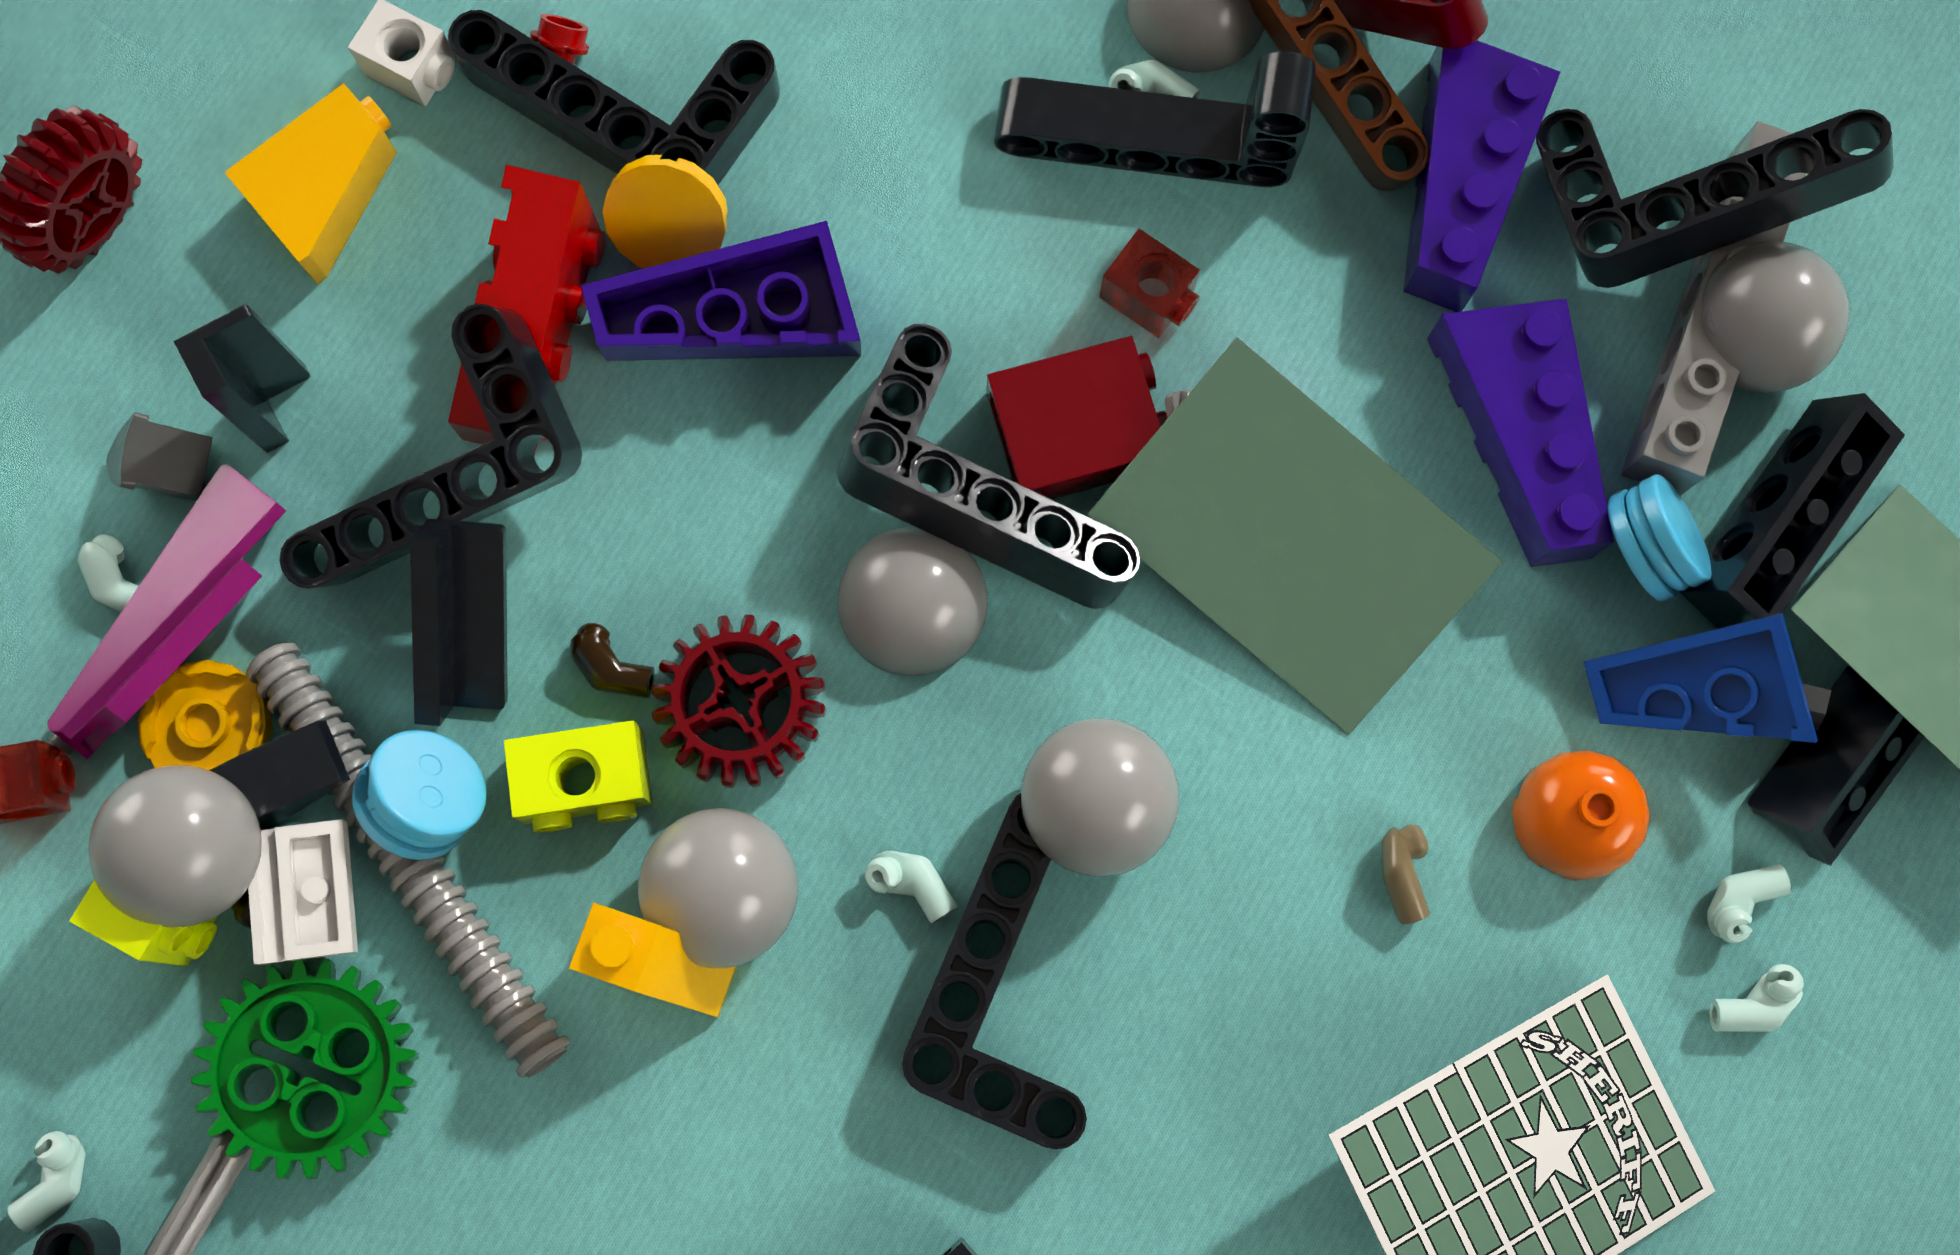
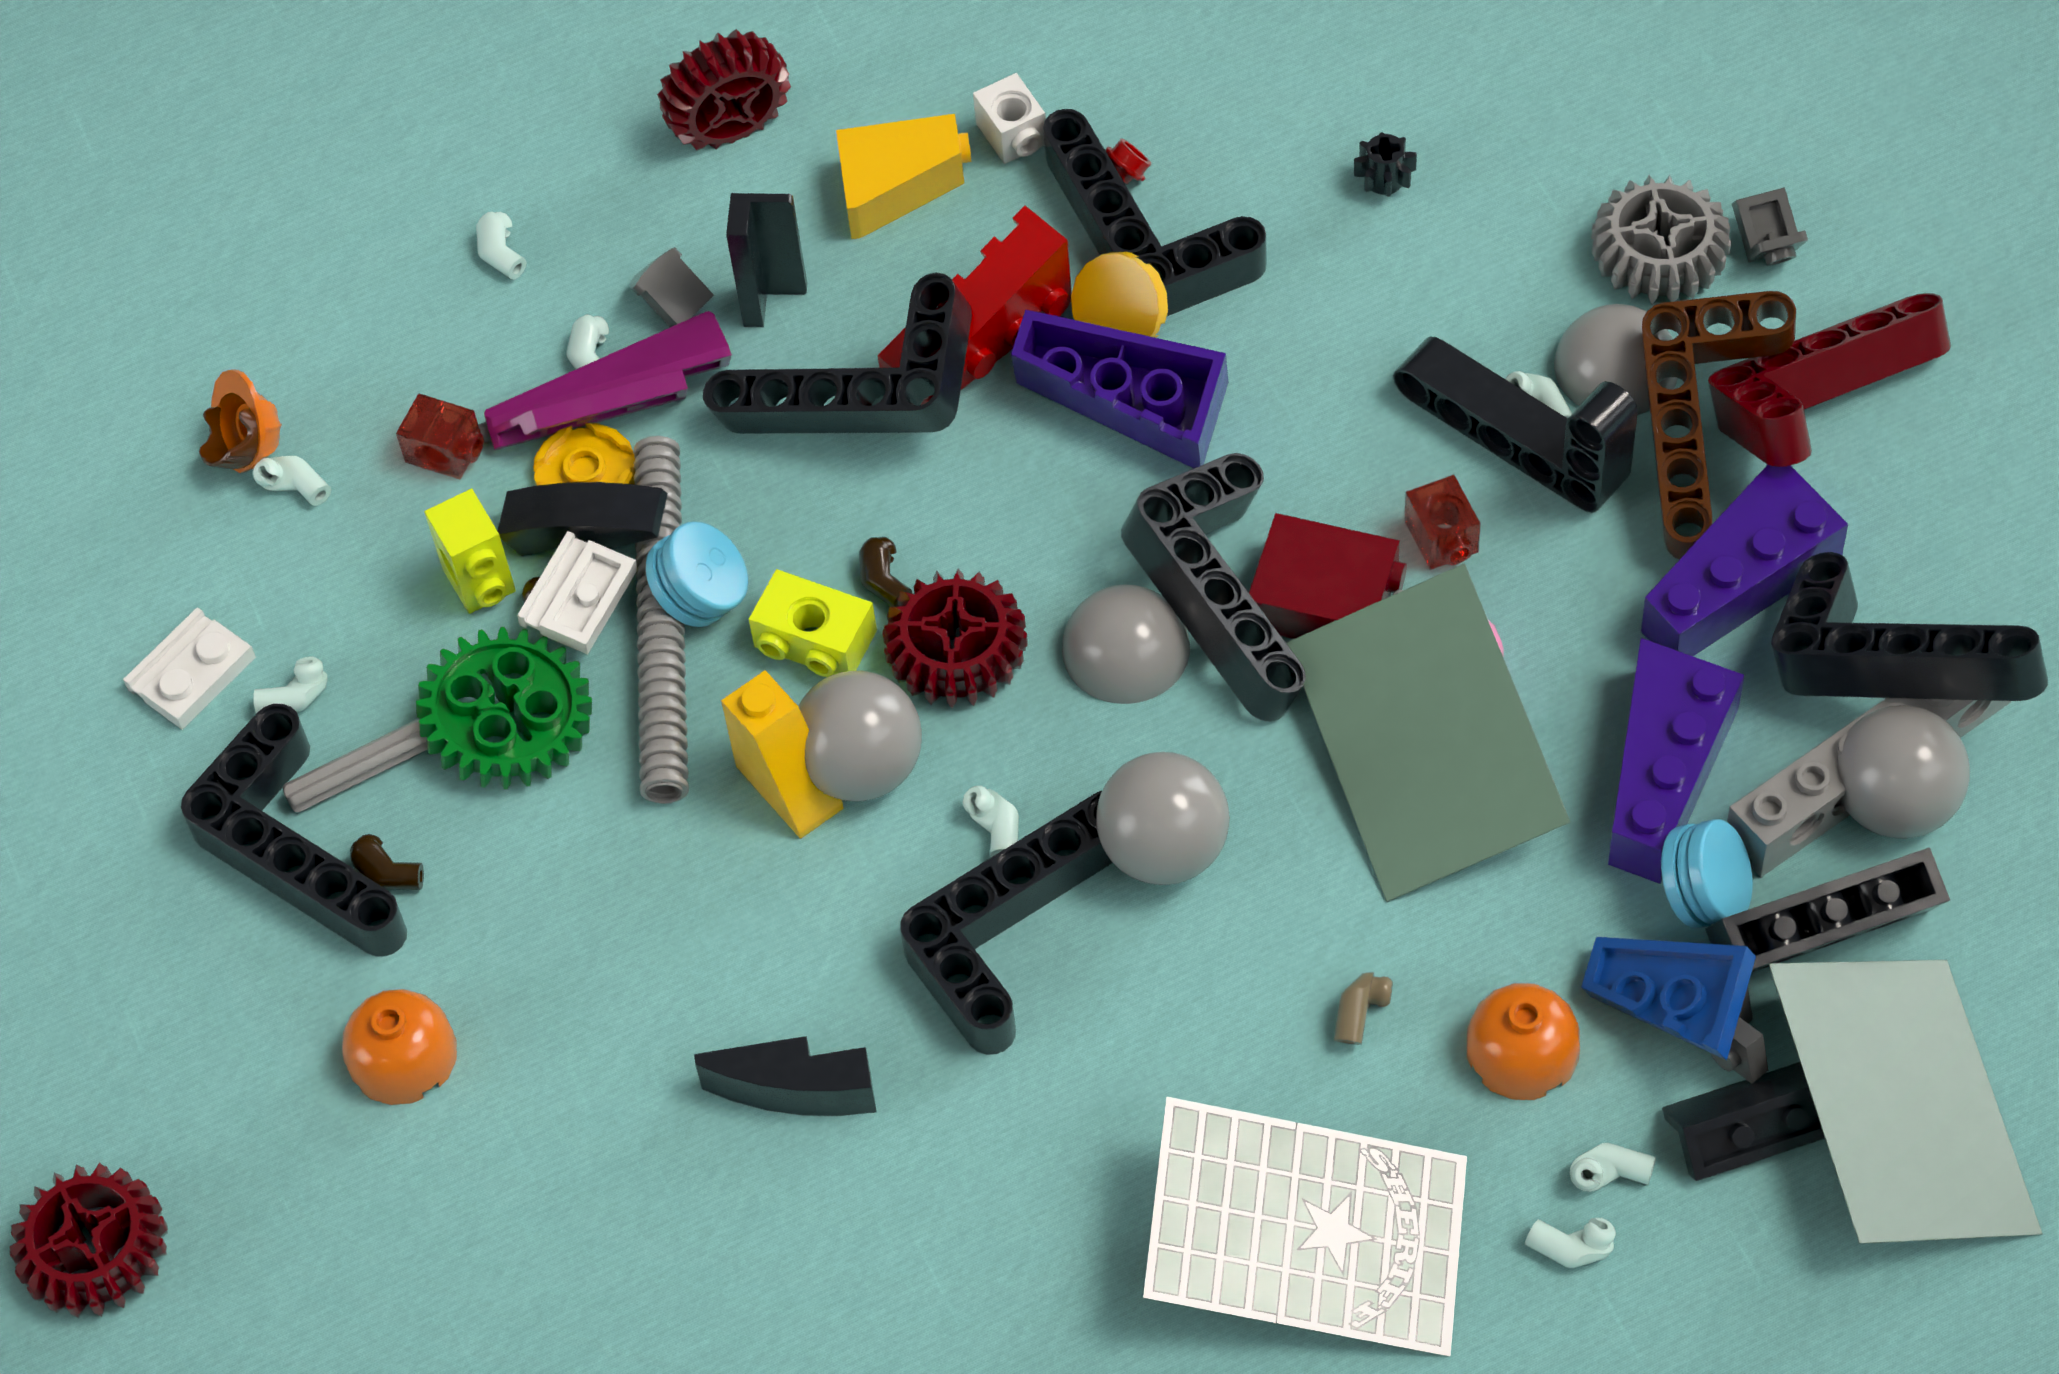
camera: 40 degrees right, 20 degrees down
(175, 846) = (521, 506): light grey piece -> none
(458, 618) = (797, 478): black panel -> none

